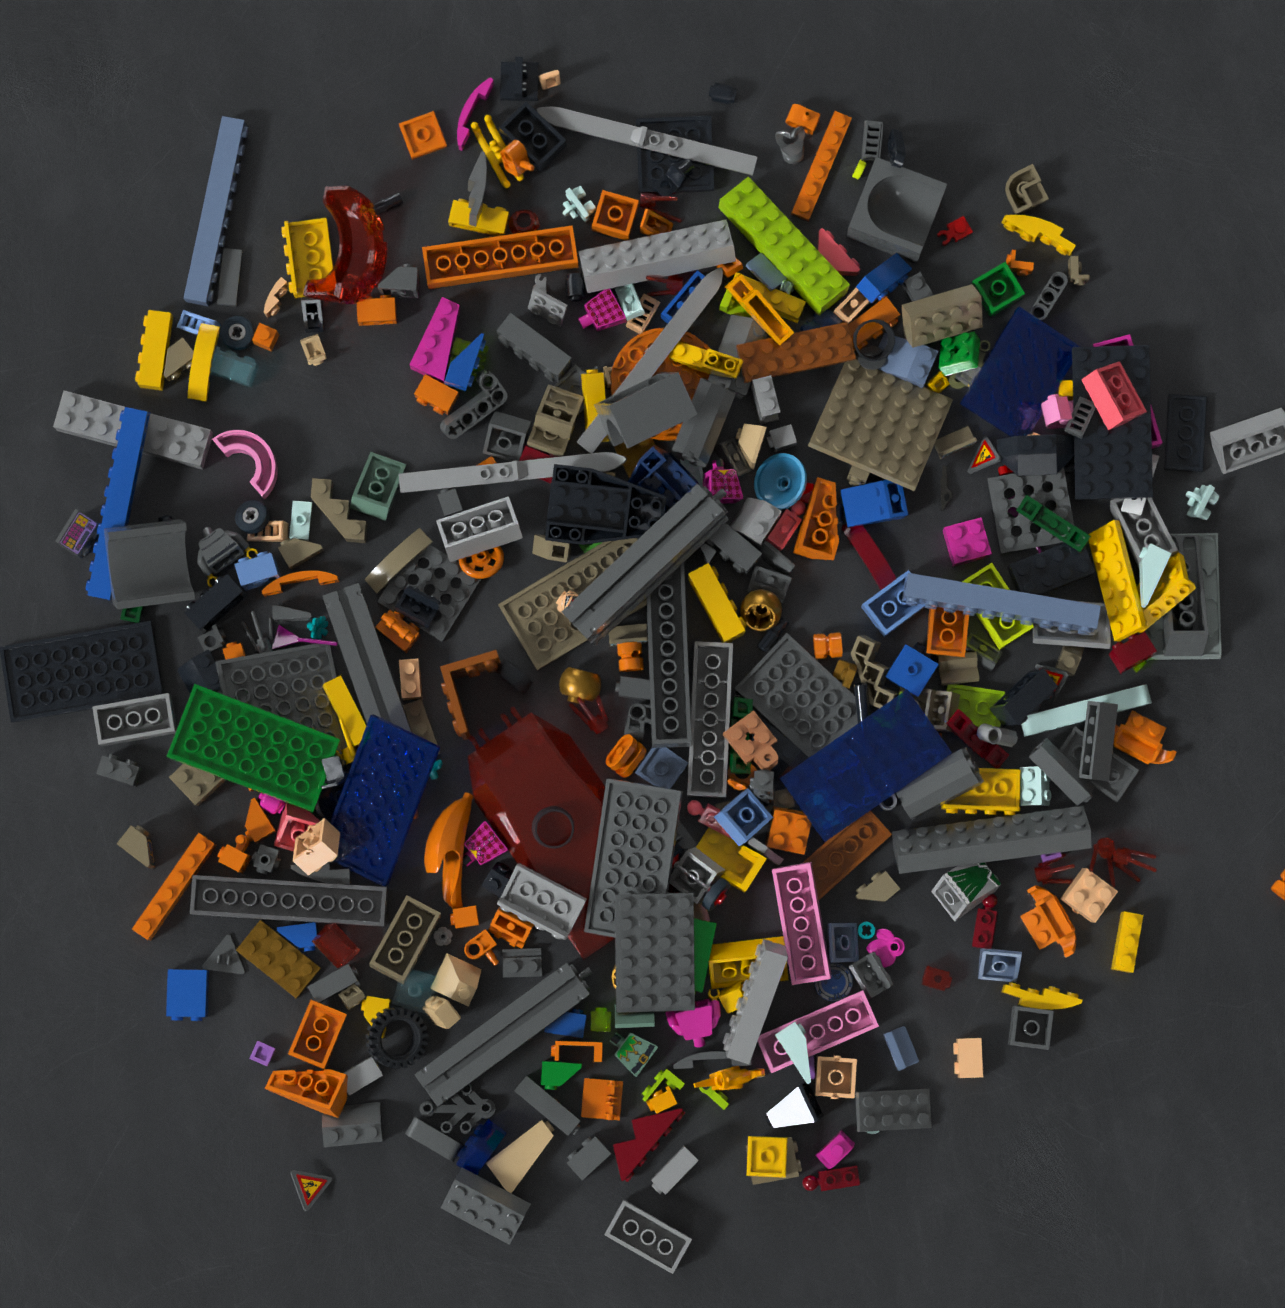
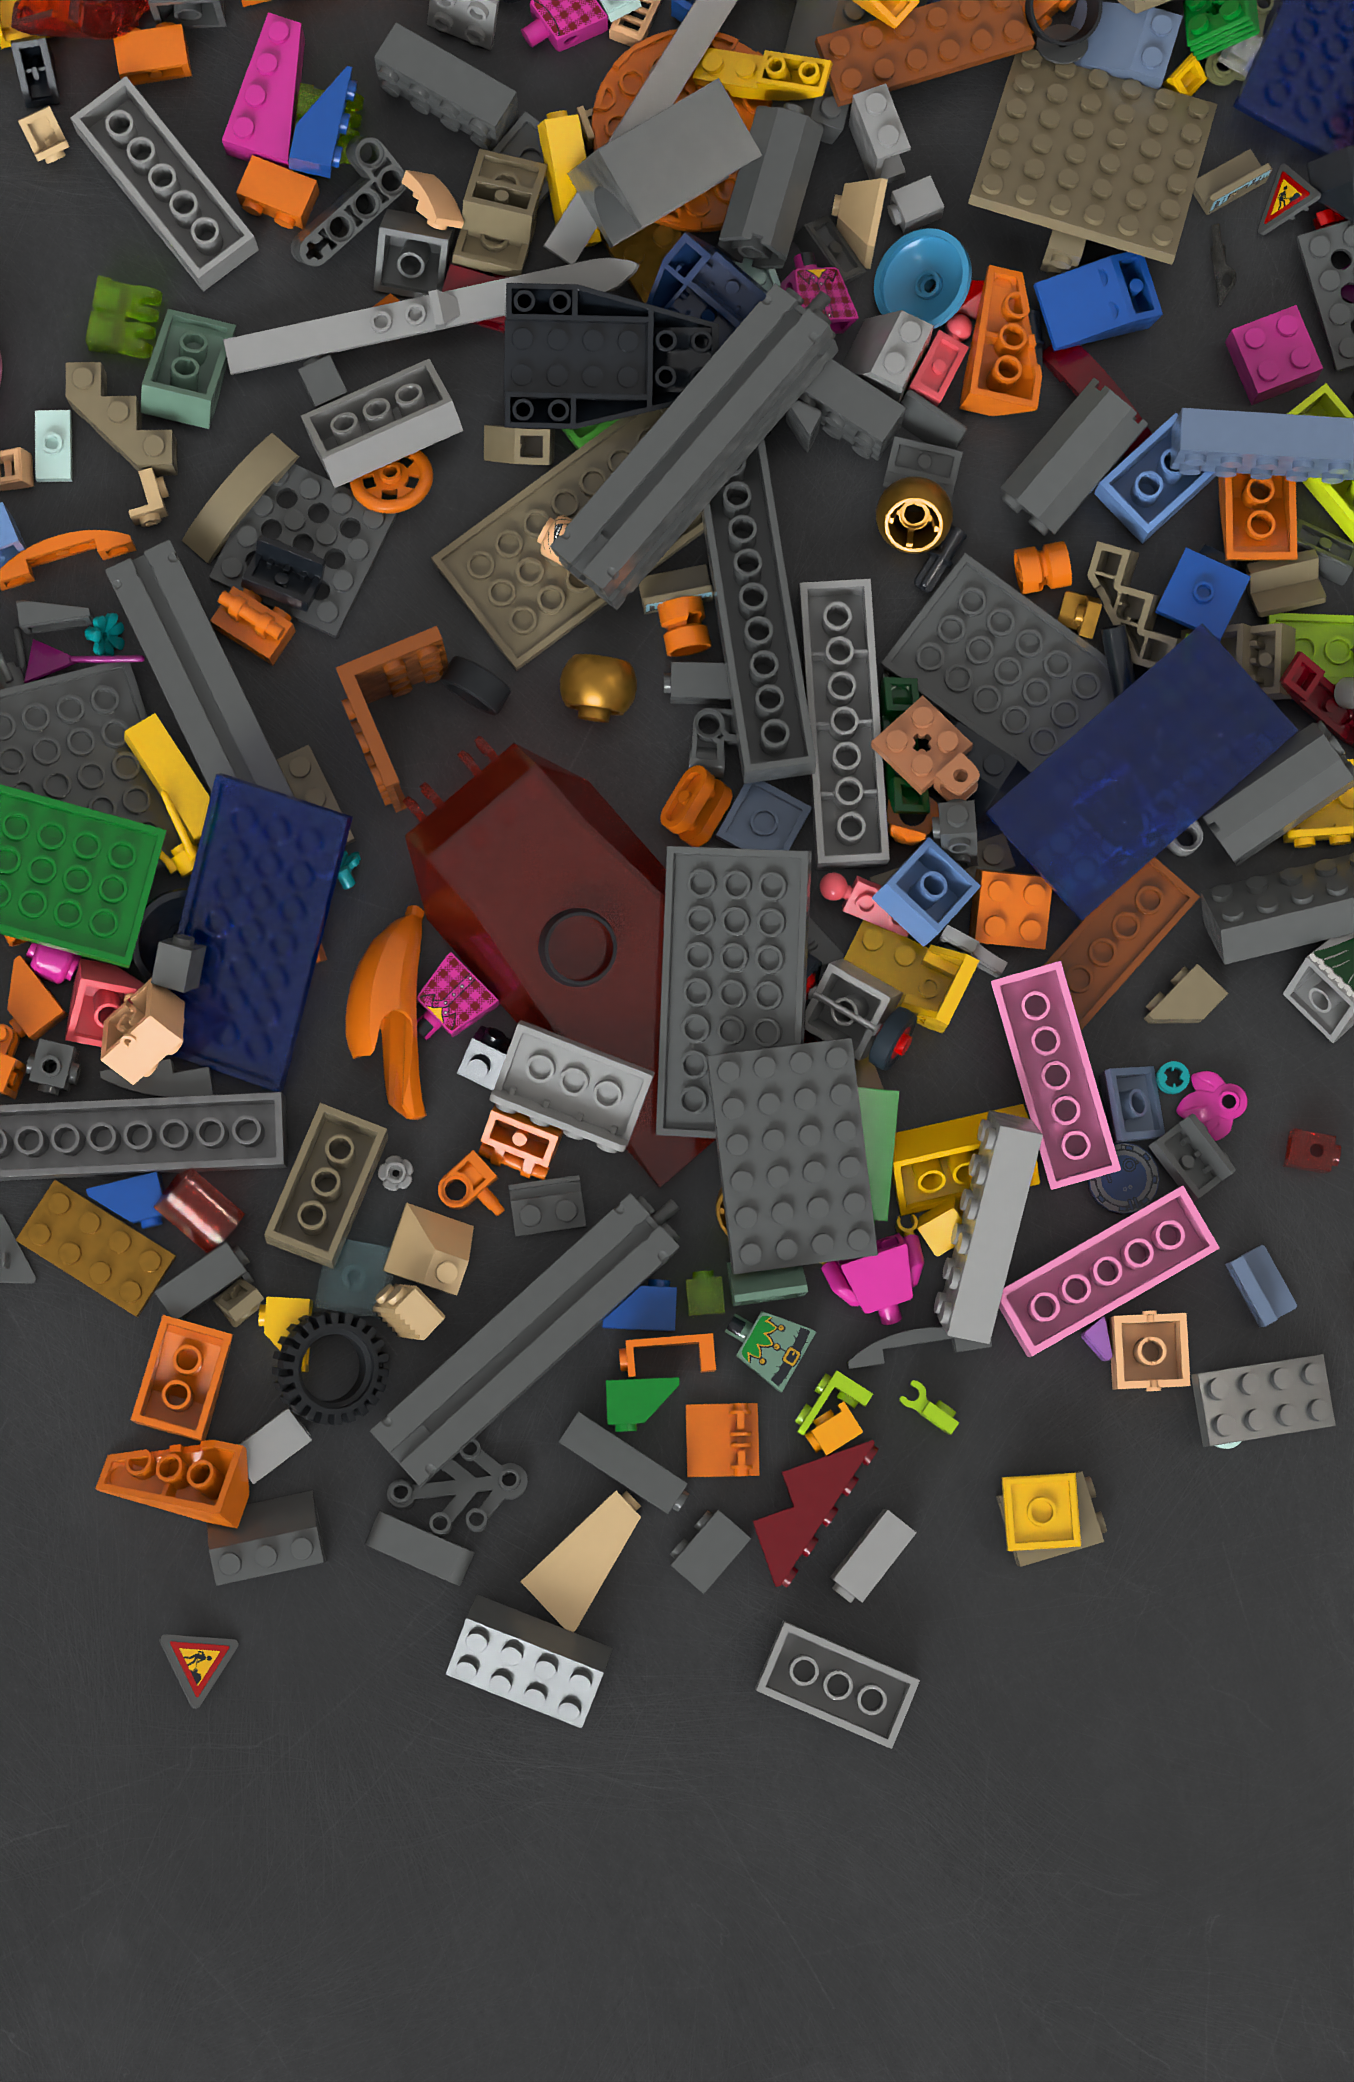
camera: 10 degrees left, 0 degrees up
(262, 1053) = (84, 1425): medium lavender plate -> none
(298, 551) = (56, 500): dark tan slope -> none
(334, 771) = (161, 886): bracket -> none
(339, 812) = (178, 963): none -> dark grey brick
(340, 447) = (107, 324): none -> clear neon green legs
(353, 551) = (155, 491): none -> tan bracket
(376, 384) = (164, 183): none -> light grey brick
(410, 679) = (285, 710): light nougat brick -> none
(464, 917) = (432, 1133): orange brick -> none
(480, 1147) = (507, 1553): clear blue brick -> none
(521, 410) = (434, 200): none -> light nougat slope
(596, 722) = (636, 753): clear red plant -> none
(716, 604) = (831, 511): yellow brick -> none
(730, 1078) = (955, 1375): light orange animal -> none
(795, 1045) = (1072, 1302): light aqua slope -> none
(795, 1108) = (1082, 1418): slope -> none
(833, 1179) = (1165, 1540): dark red plate -> none
(835, 1150) = (1163, 1486): dark pink torso -> none
(849, 589) = (1072, 458): none -> dark grey brick

